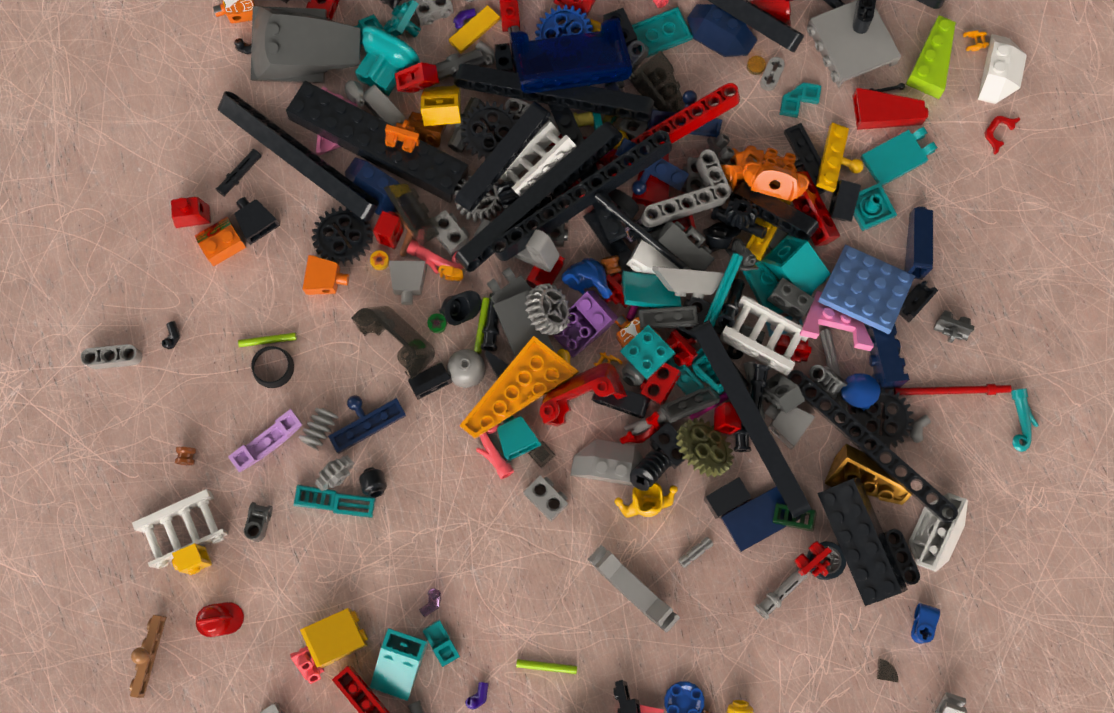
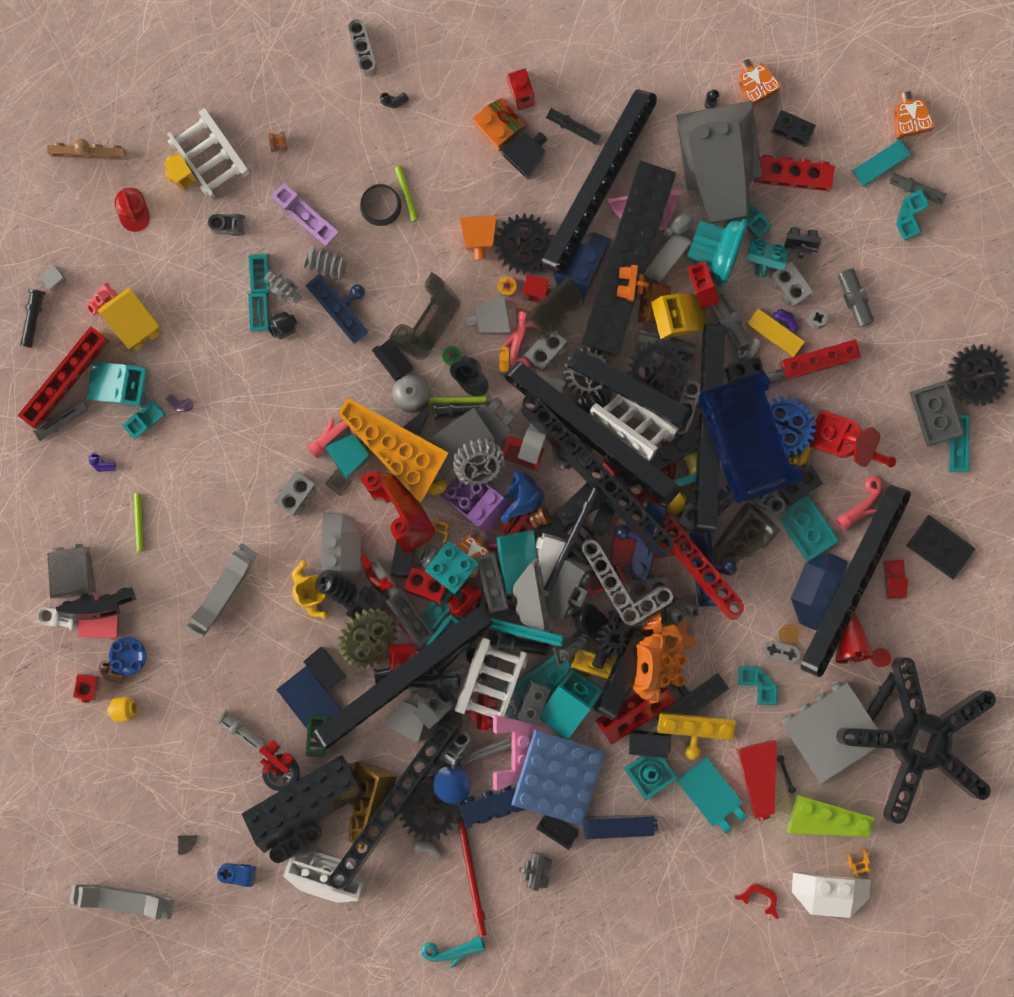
camera: 80 degrees right, 10 degrees up
(695, 552) = (268, 646): light grey axle -> none

